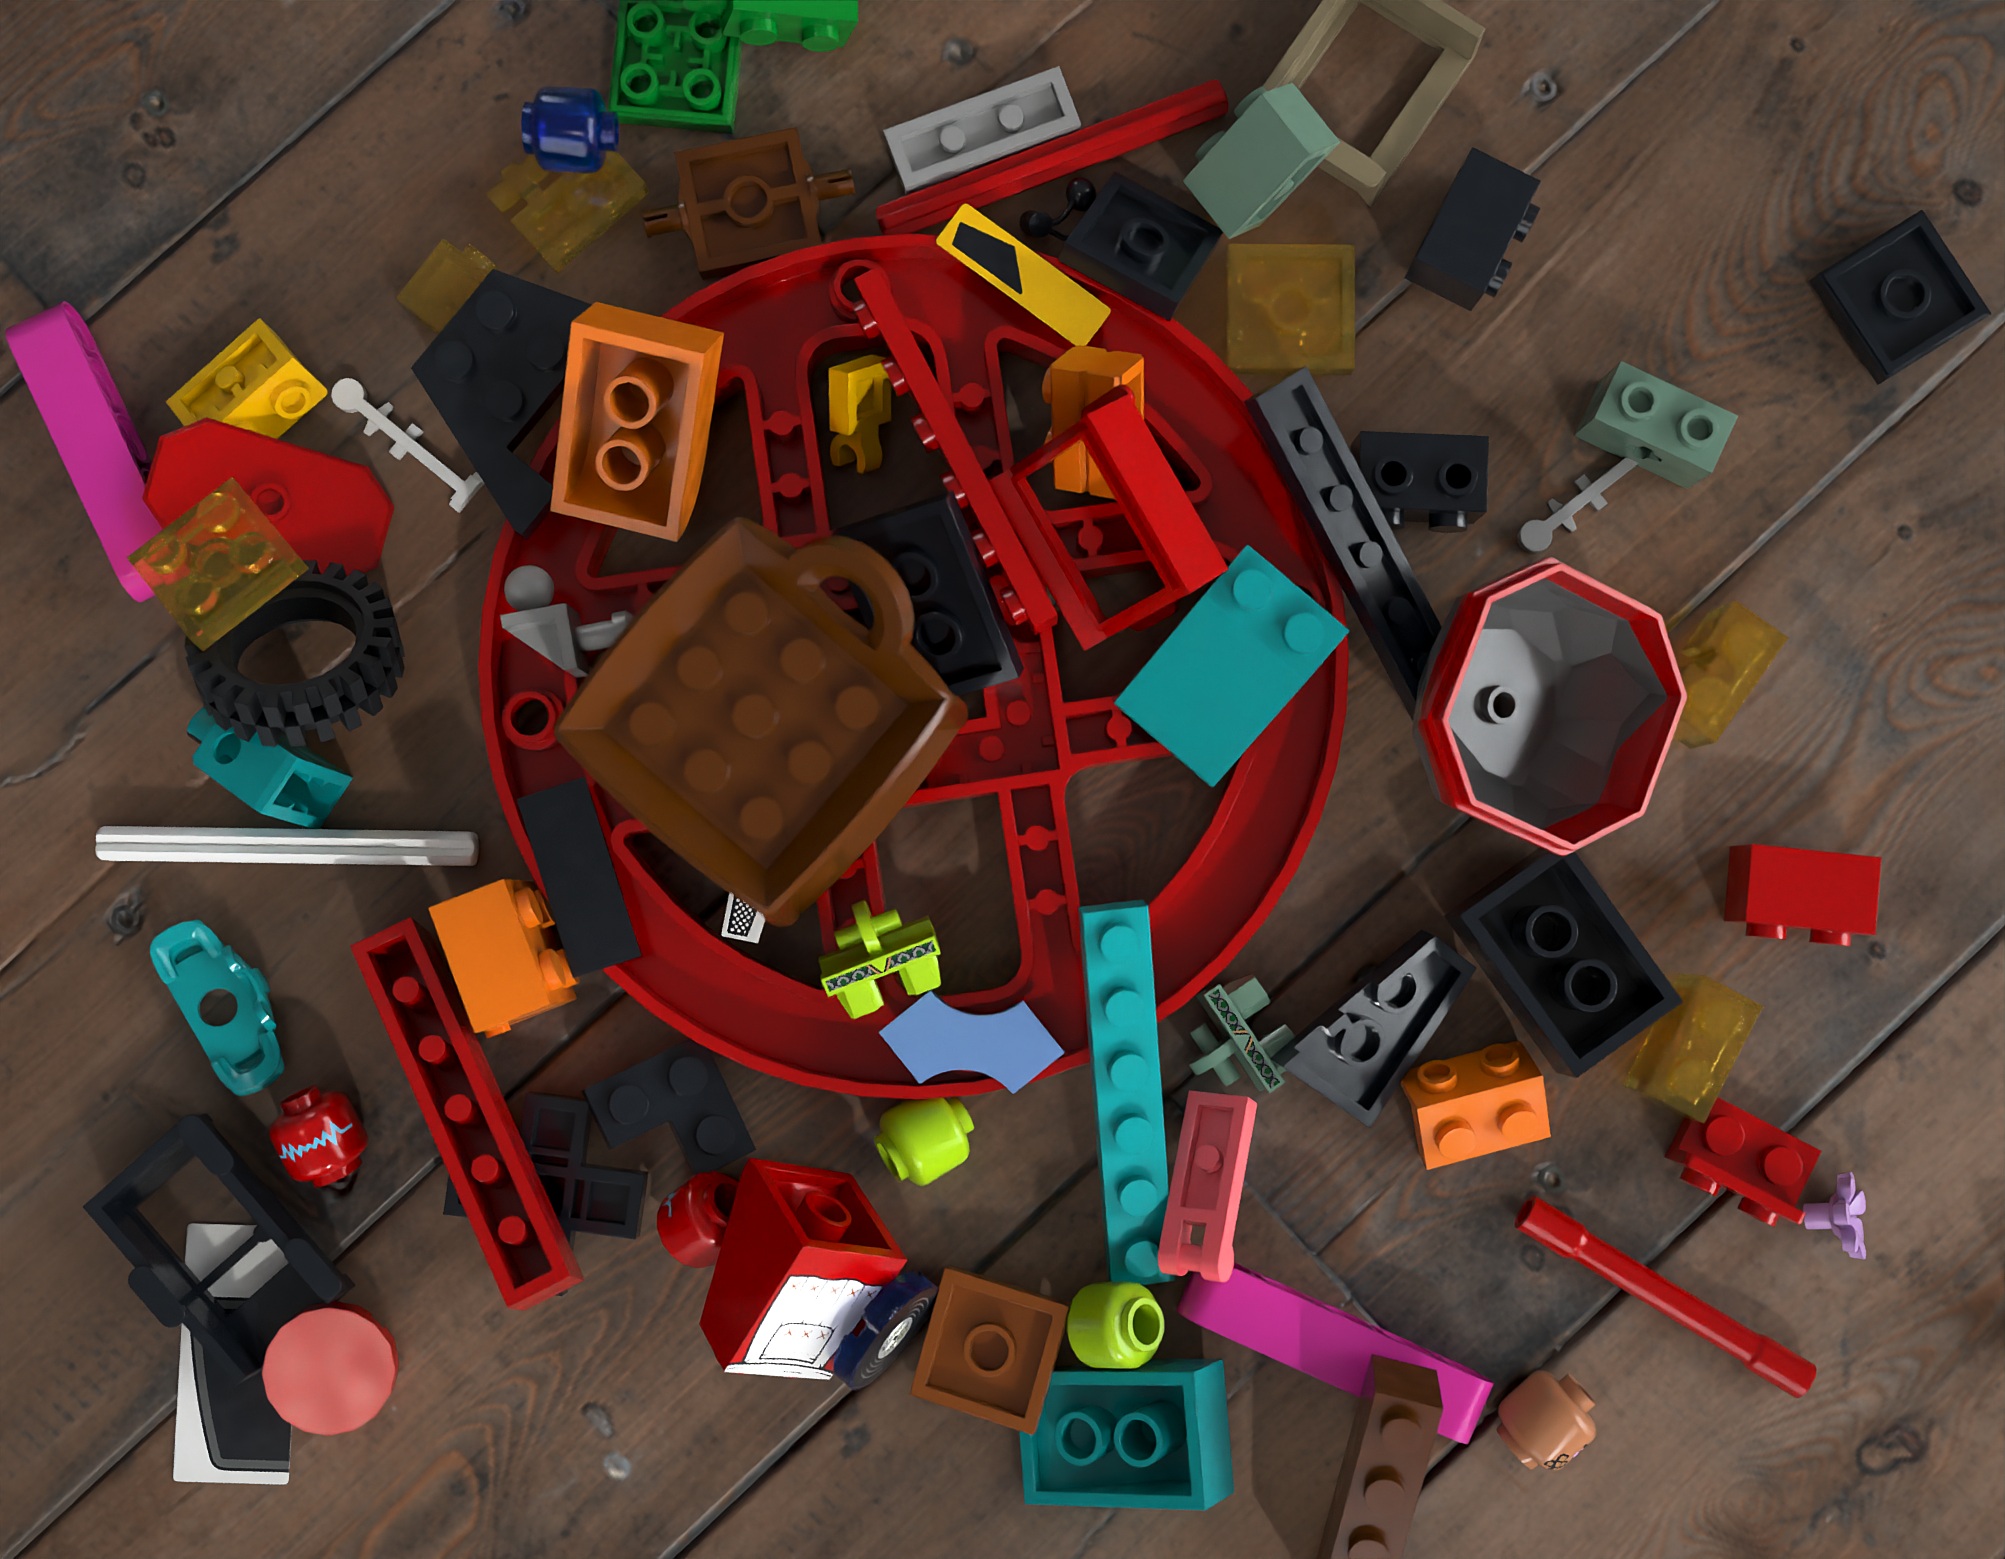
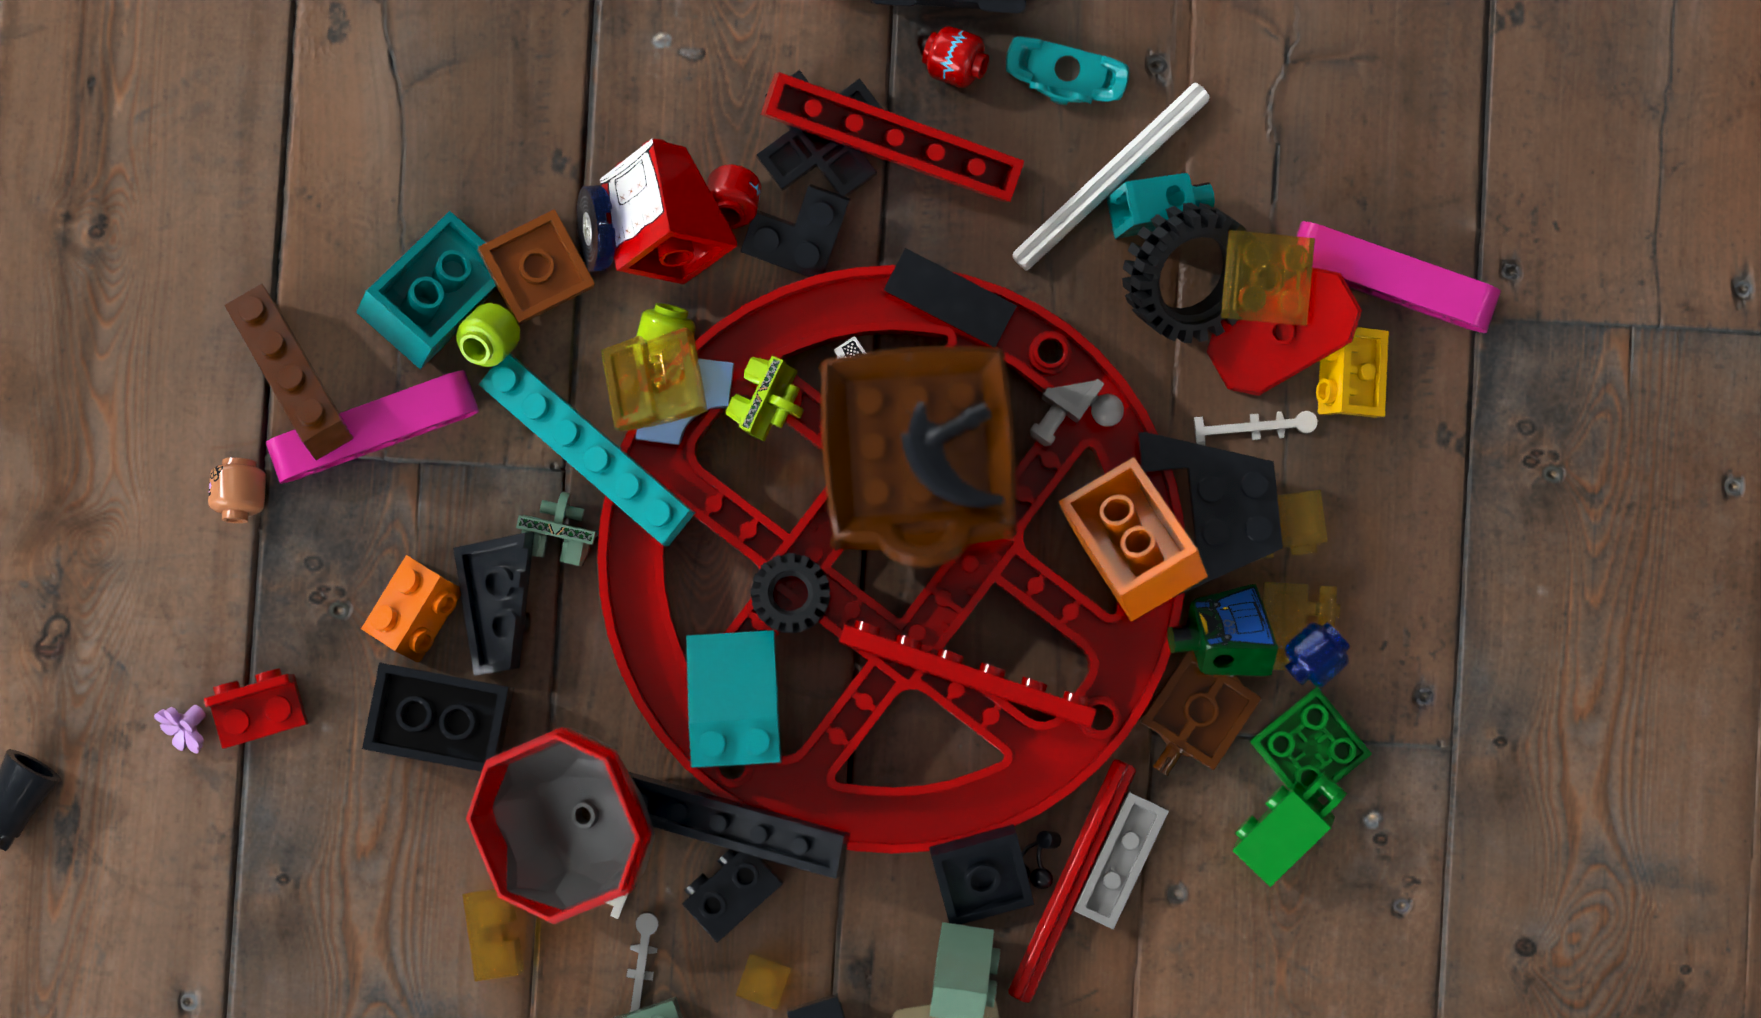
camera: 135 degrees right, 0 degrees up
(503, 954) = (948, 228): orange brick -> none
(639, 239) = (1228, 634): none -> torso
(759, 681) = (928, 460): none -> black piece
(857, 407) = (1042, 656): yellow plate -> none
(952, 600) = (911, 600): black plate -> none
(983, 1096) = (654, 380): none -> clear yellow slope
(1023, 275) = (1023, 800): yellow sticker -> none
(1053, 682) = (784, 566): none -> black tyre
(1070, 386) = (915, 760): orange brick -> none
(1147, 496) = (854, 736): red piece -> none
(1207, 1185) = (507, 443): coral plate -> none
(1290, 308) = (878, 918): clear yellow plate -> none
(1469, 362) = (763, 981): none -> clear yellow plate
(1693, 1047) = (333, 737): clear yellow brick -> none
(1755, 1351) = (165, 620): red piece -> none
(1804, 891) = (349, 867): red brick -> none

